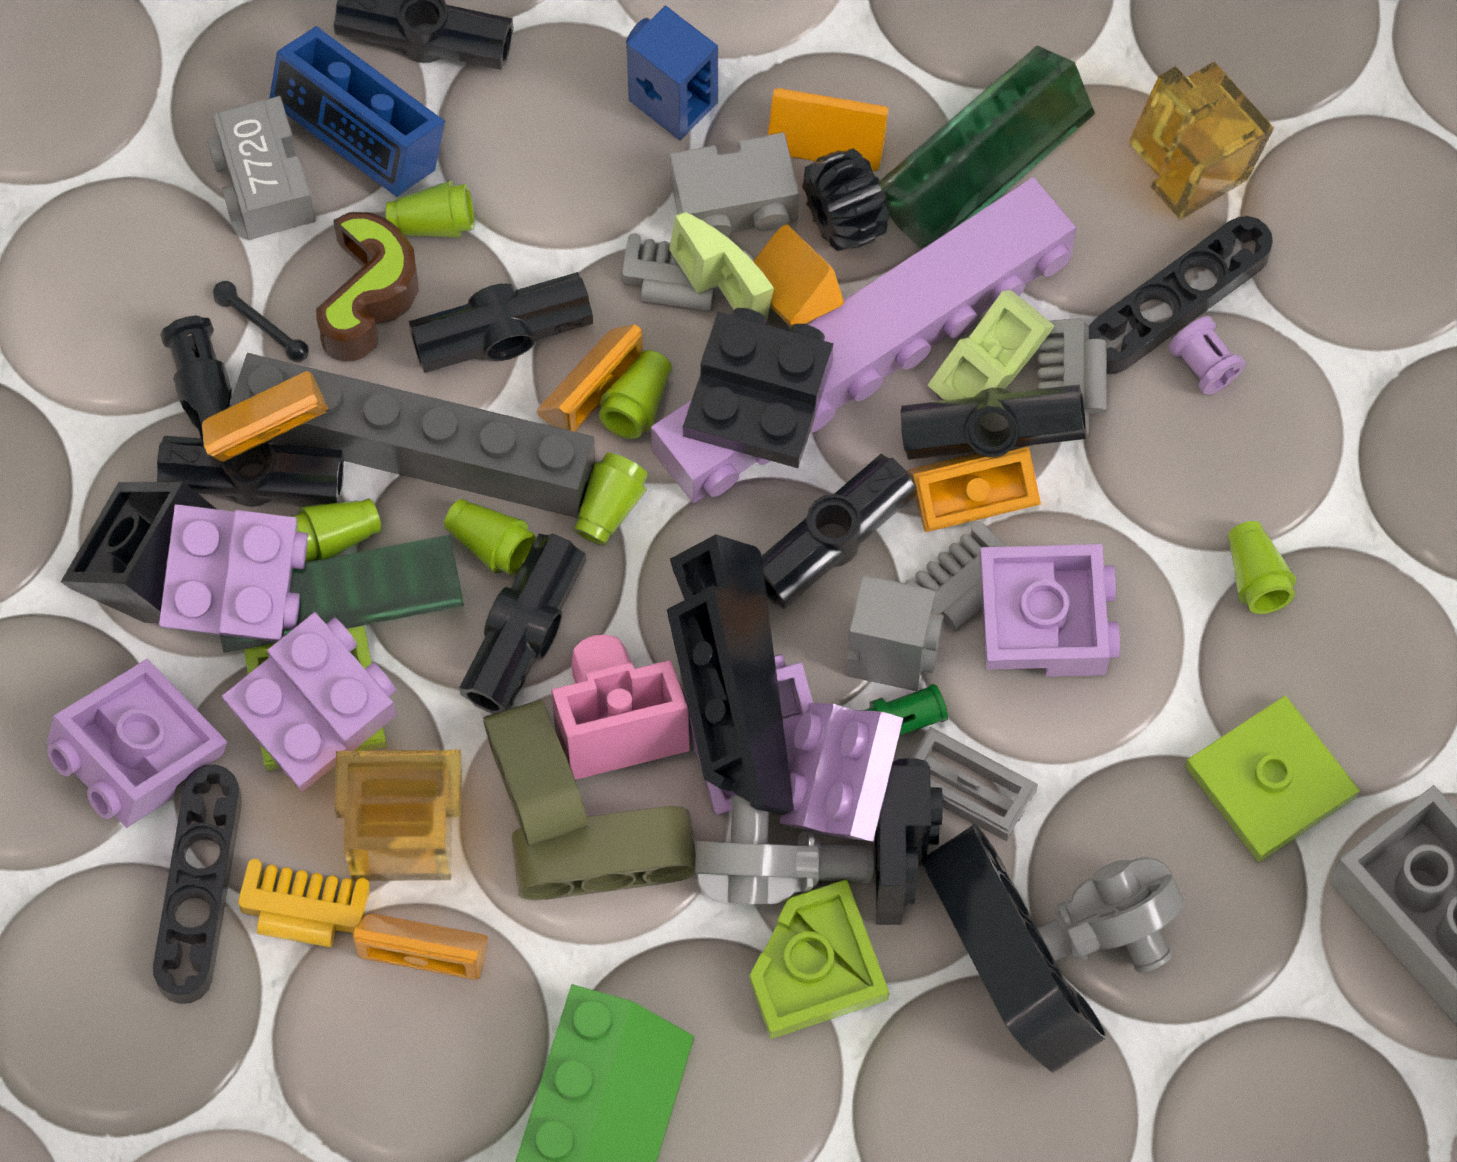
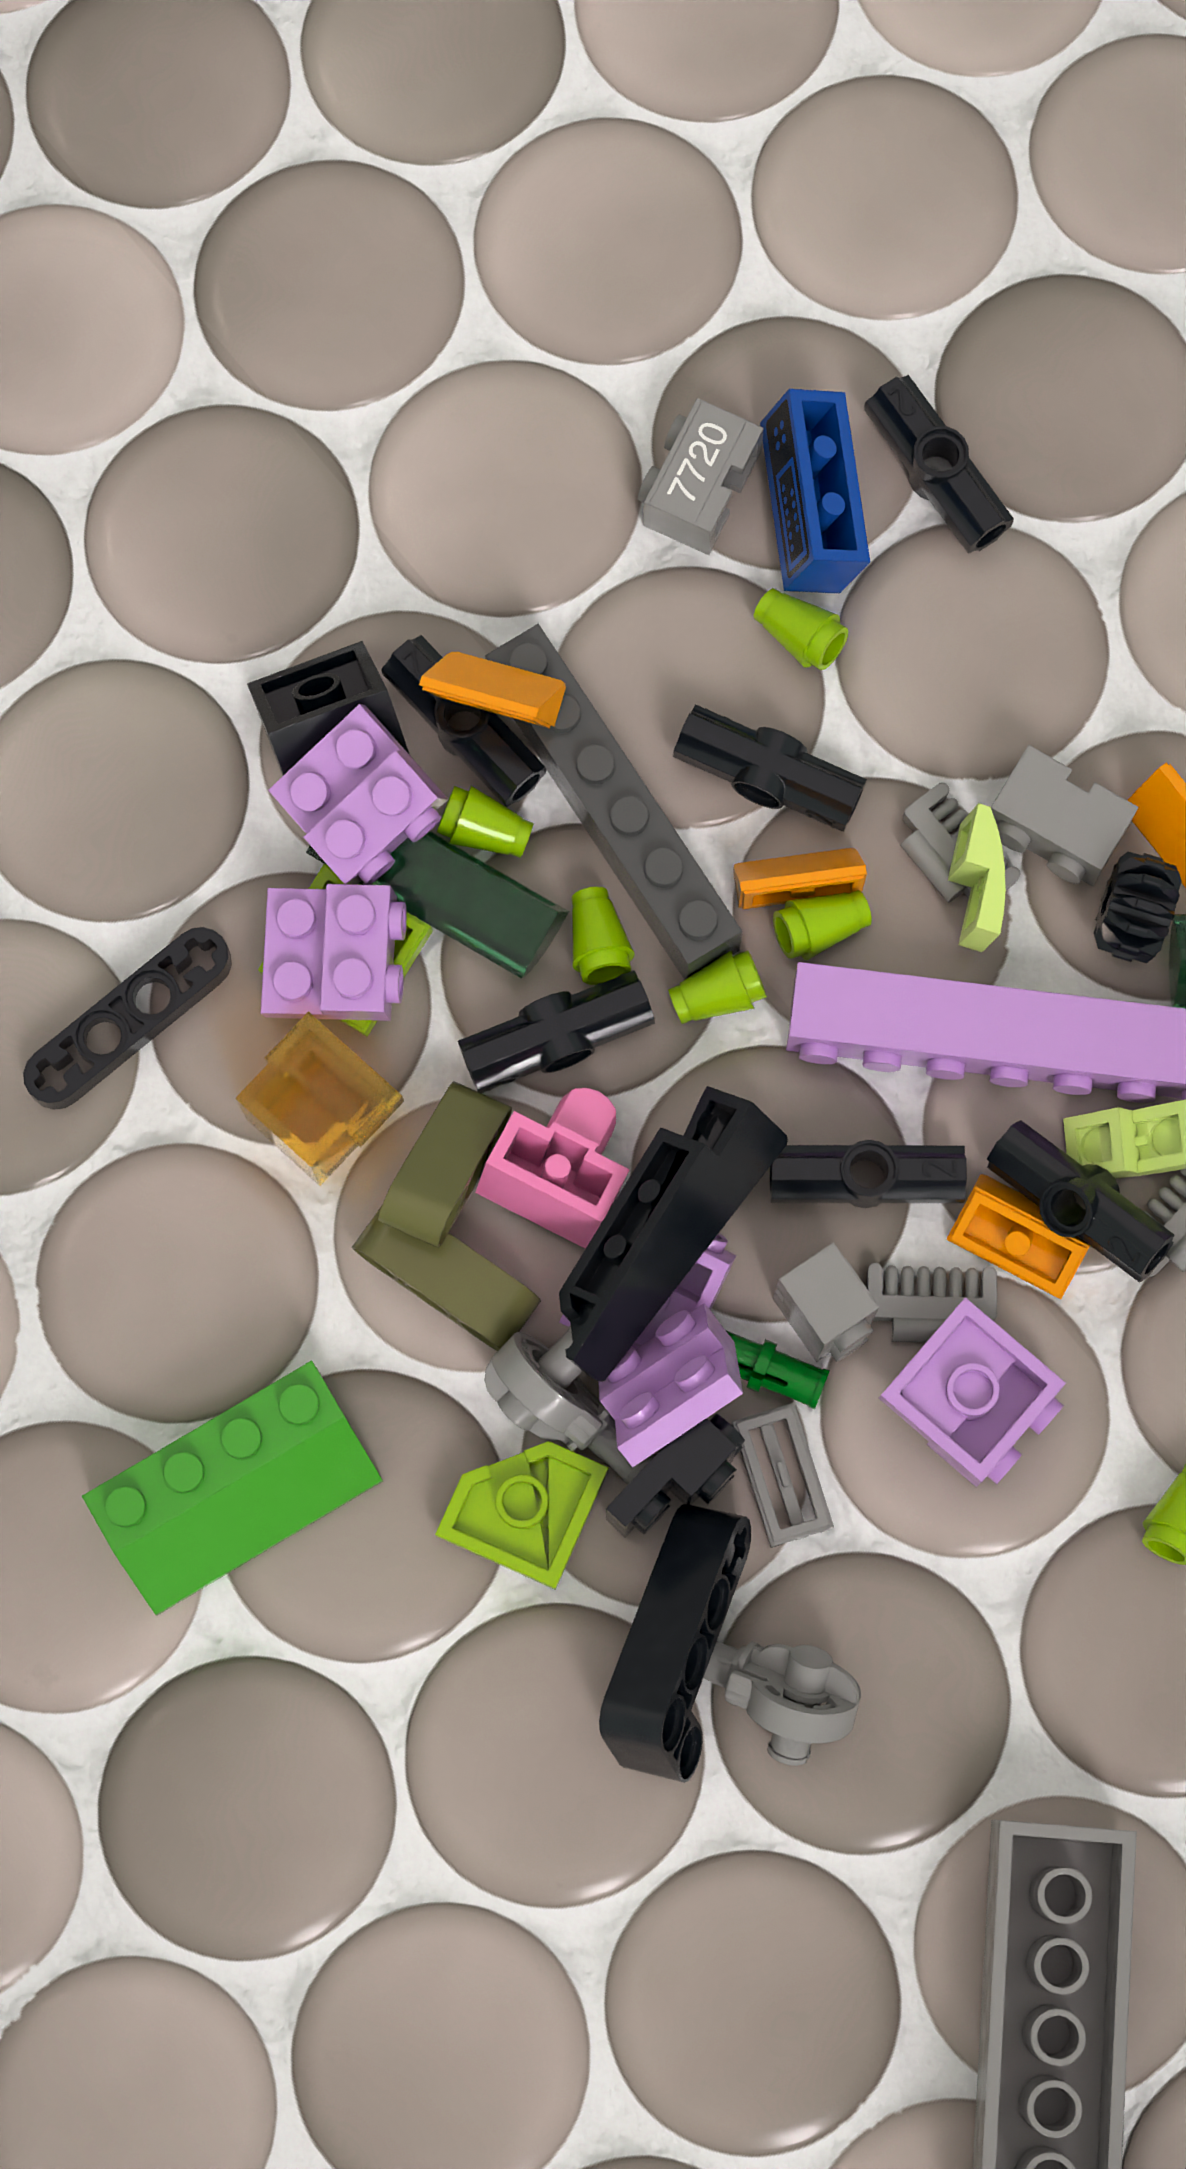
camera: 45 degrees right, 10 degrees up
(132, 743) = (176, 864): lavender plate -> none
(201, 379) = (494, 615): black piece -> none
(226, 295) = (583, 557): black hinge -> none
(297, 916) = (175, 1108): yellow piece -> none
(372, 295) = (692, 657): reddish brown animal -> none
(420, 946) = (247, 1217): light orange slope -> none
(672, 71) = (1096, 675): blue brick -> none
(759, 387) = (909, 1007): black plate -> none
(800, 277) = (1030, 939): light orange slope -> none
(1272, 778) = (1027, 1694): lime plate -> none

